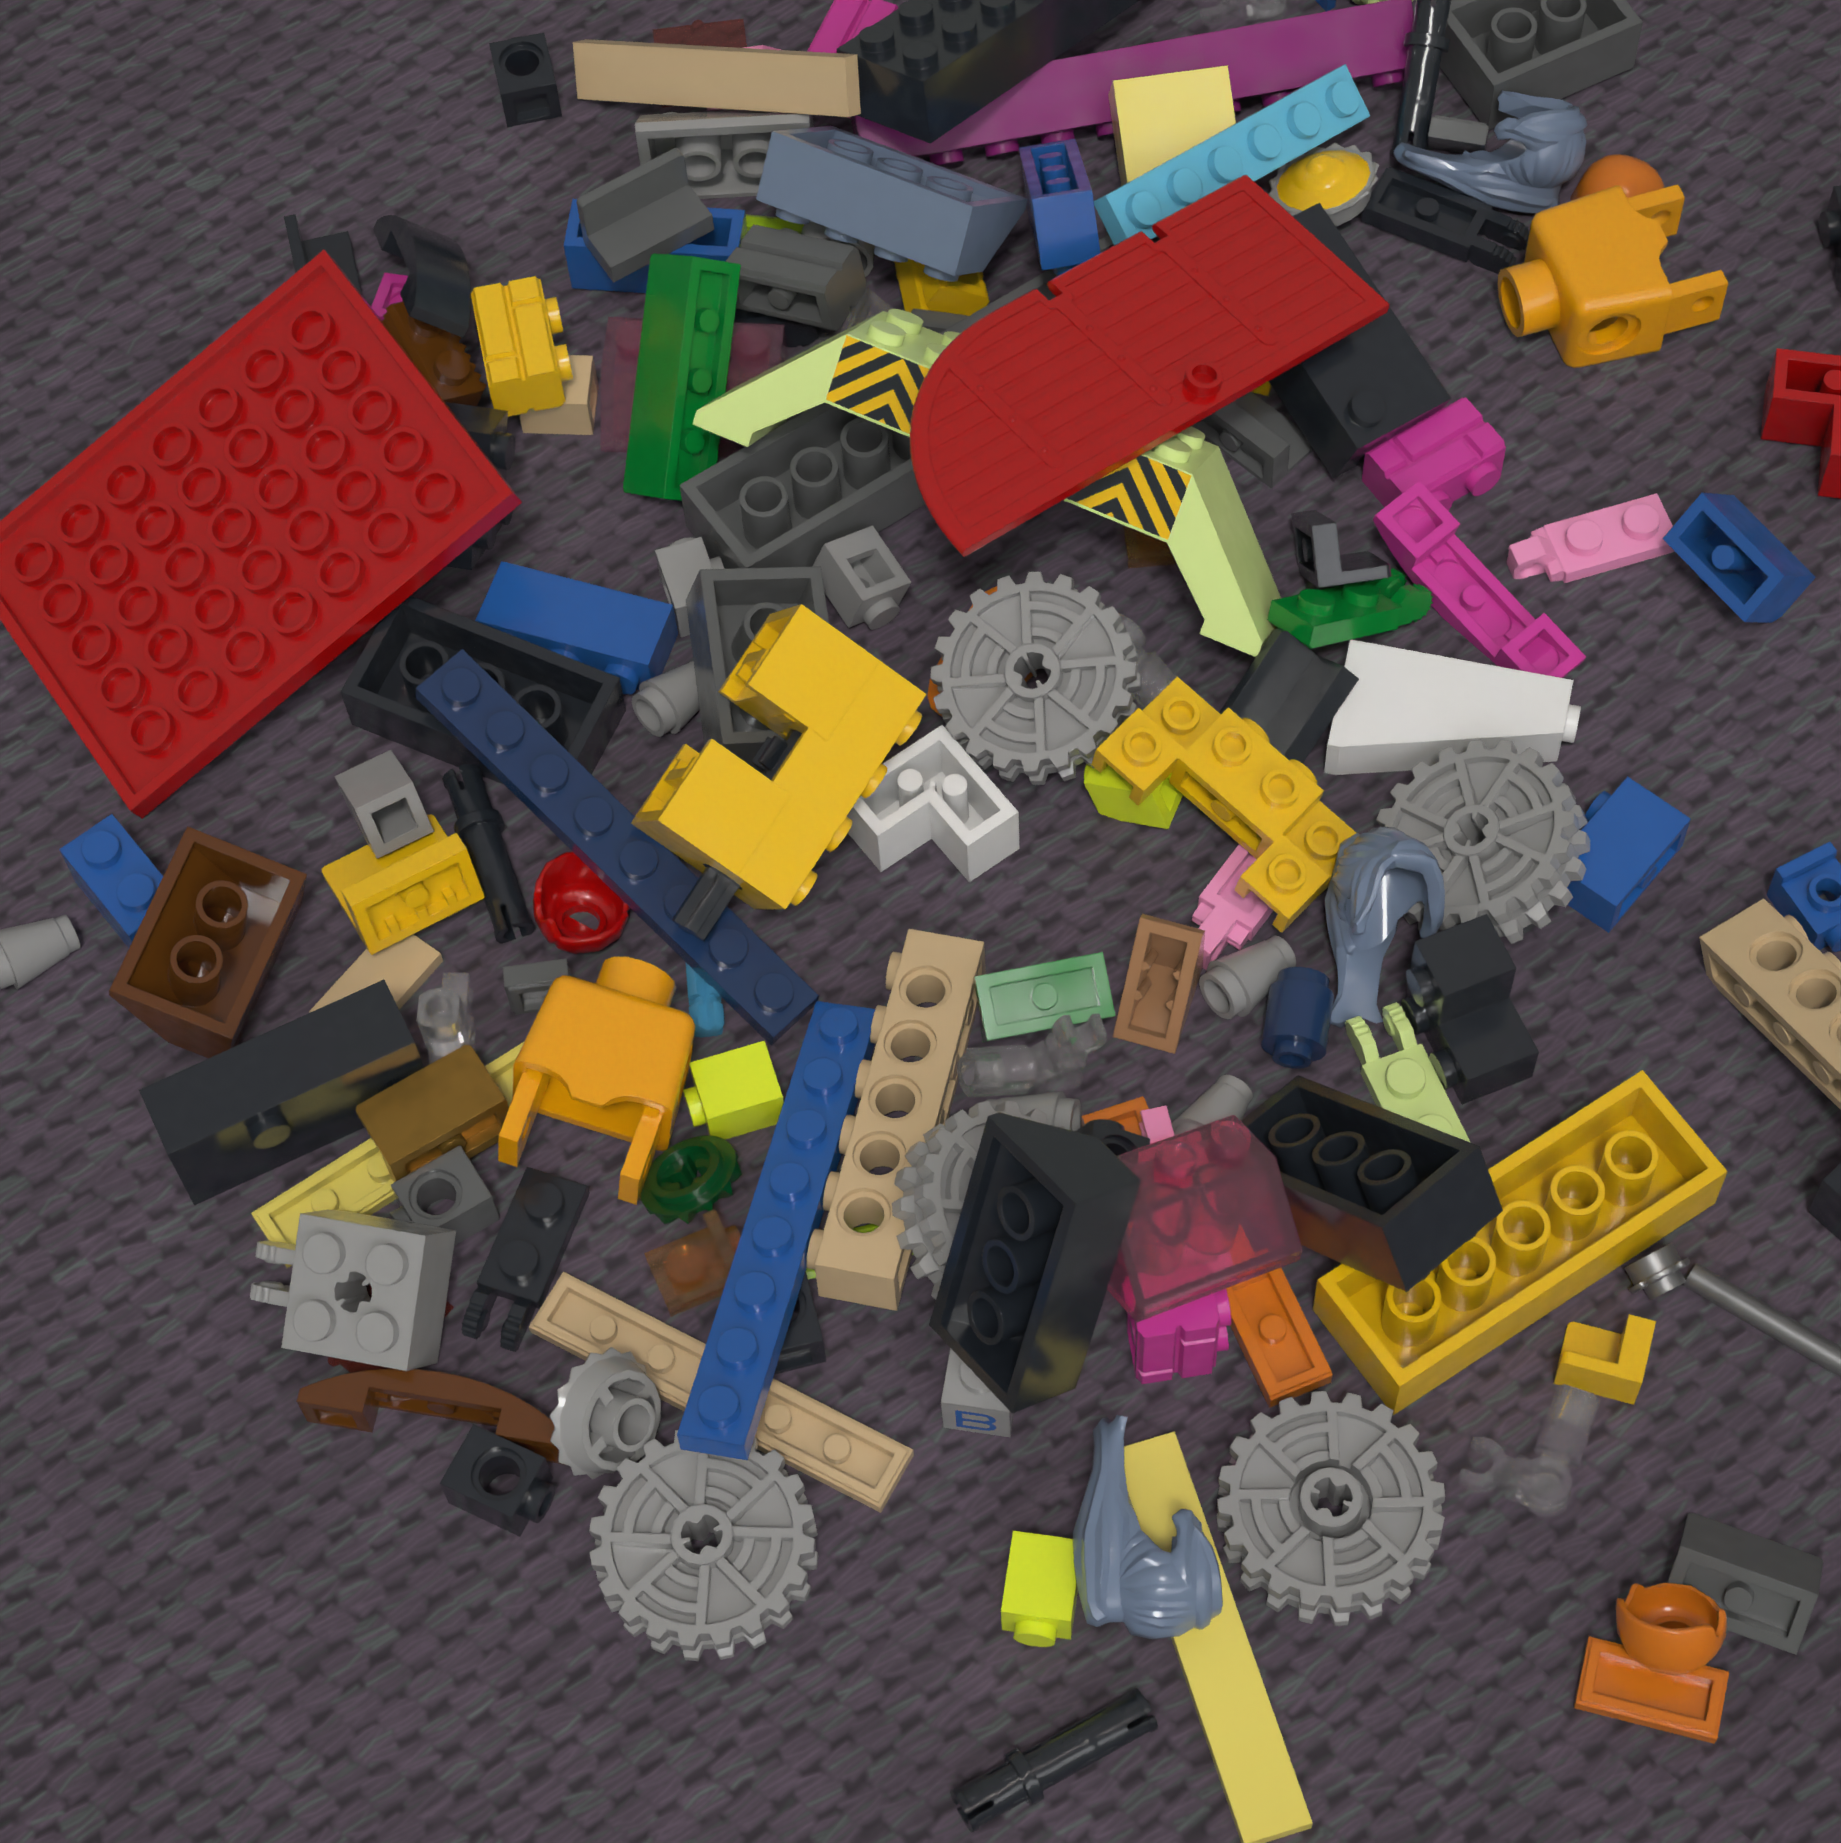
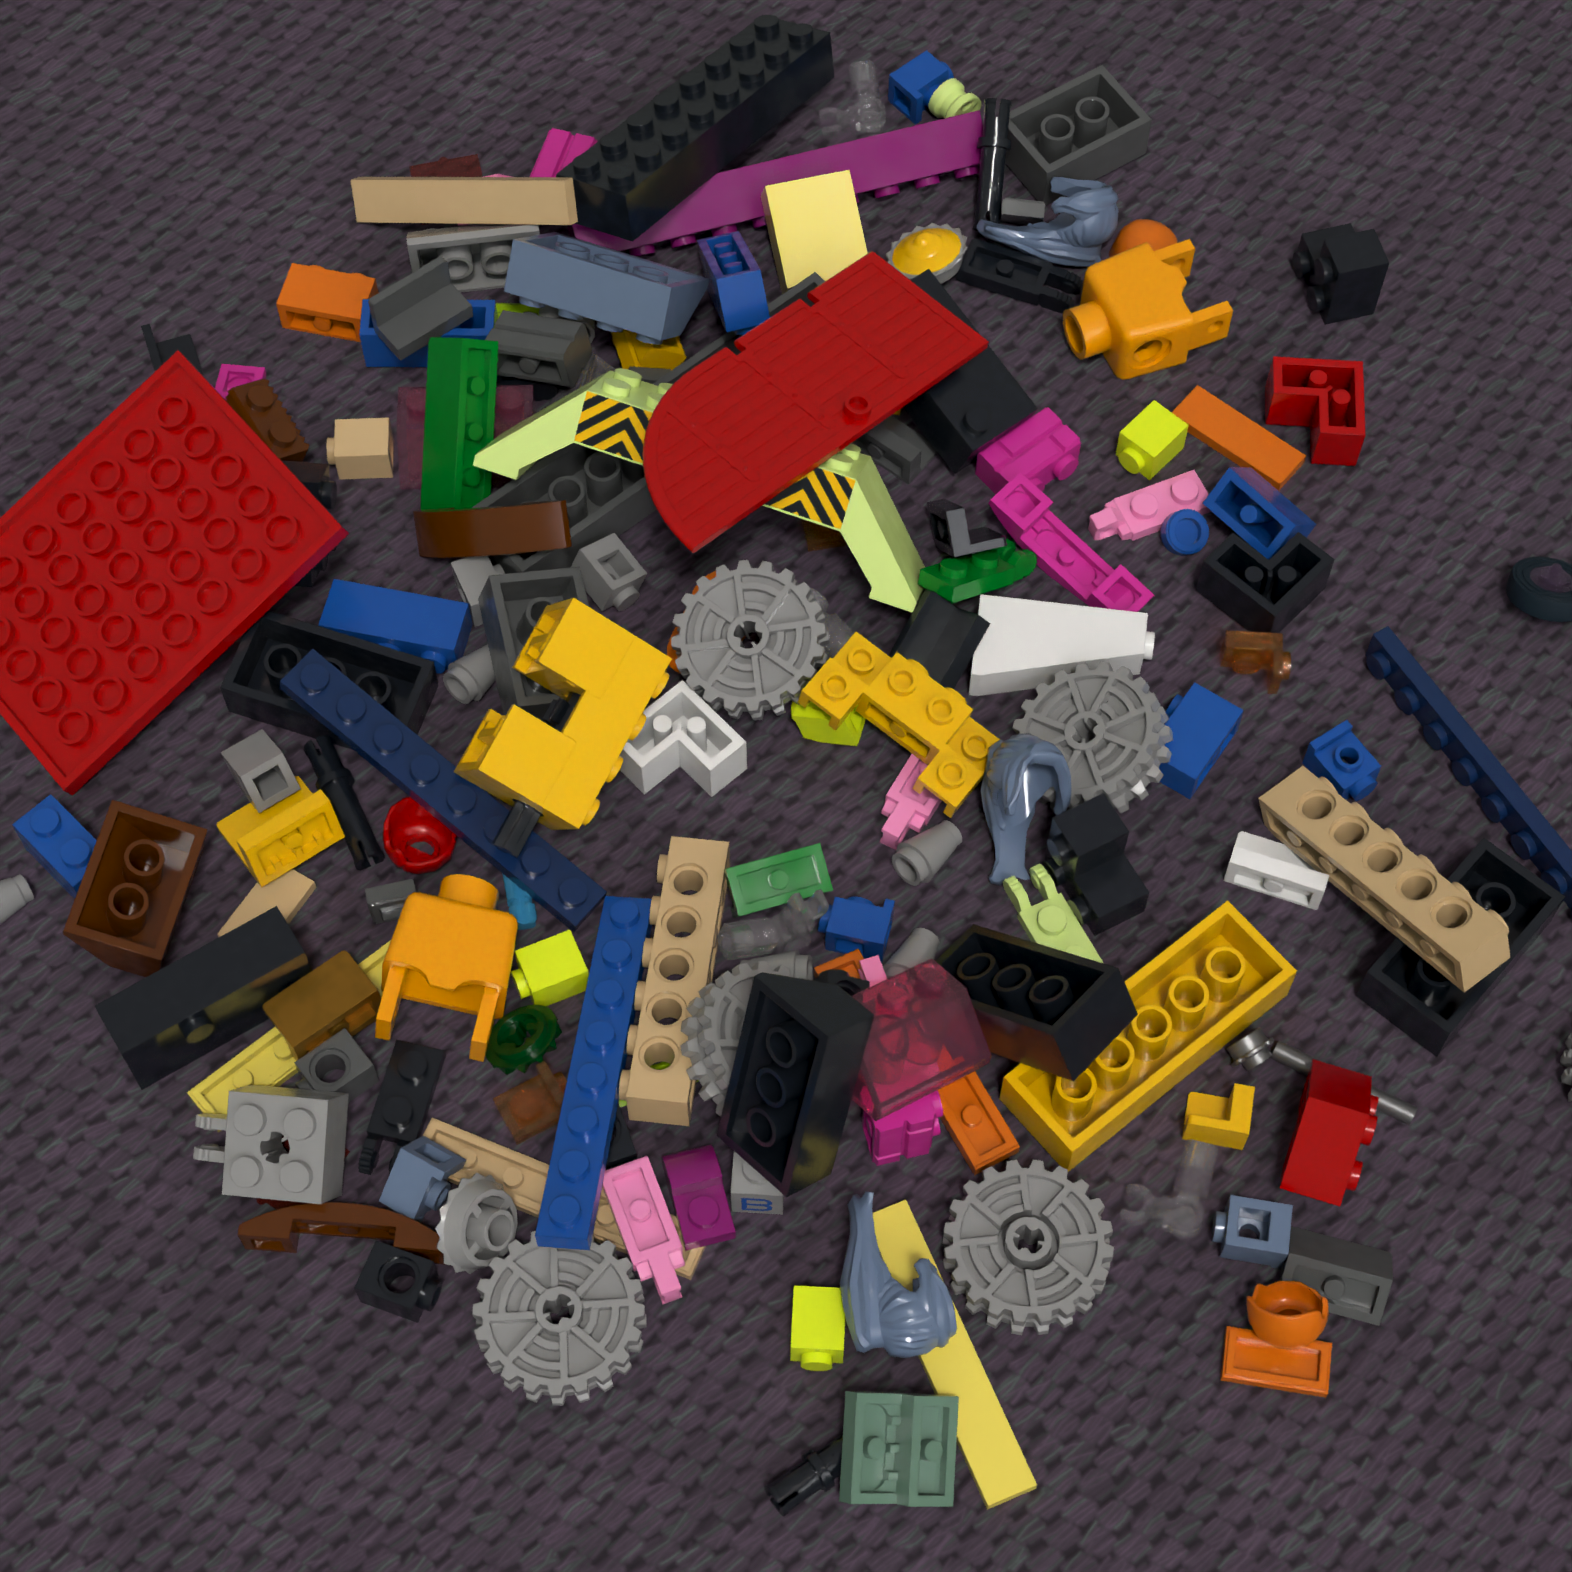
camera: 10 degrees left, 0 degrees up
(438, 277) = (266, 367): black slope -> none
(447, 1016) = (325, 930): clear bar -> none
(519, 347) = (332, 413): yellow brick -> none
(523, 198) = (324, 301): none -> orange brick
(525, 79) = (316, 210): black brick -> none
(539, 1348) = (420, 1178): none -> sand blue brick
(713, 510) = (492, 529): none -> reddish brown slope
(826, 1435) = (645, 1225): none -> bright pink hinge
(900, 1404) = (698, 1197): none -> magenta brick
(1132, 1758) = (899, 1449): none -> sand green slope
(1145, 1065) = (857, 925): none -> blue brick
(1160, 983) = (863, 857): medium nougat slope -> none
(1246, 148) = (867, 231): medium azure plate -> none
(1298, 1017) = (968, 880): dark blue brick -> none
(1602, 451) = (1151, 440): none -> neon yellow brick
(1636, 576) = (1184, 532): none -> blue tile
(1654, 1497) = (1267, 1219): none -> sand blue brick
(1713, 1037) = (1274, 871): none -> white panel
(1715, 741) = (1254, 651): none -> clear orange bracket
(1720, 454) = (1239, 437): none -> orange tile
(1736, 663) = (1261, 591): none -> black brick
(1754, 1380) = (1331, 1124): none -> red brick

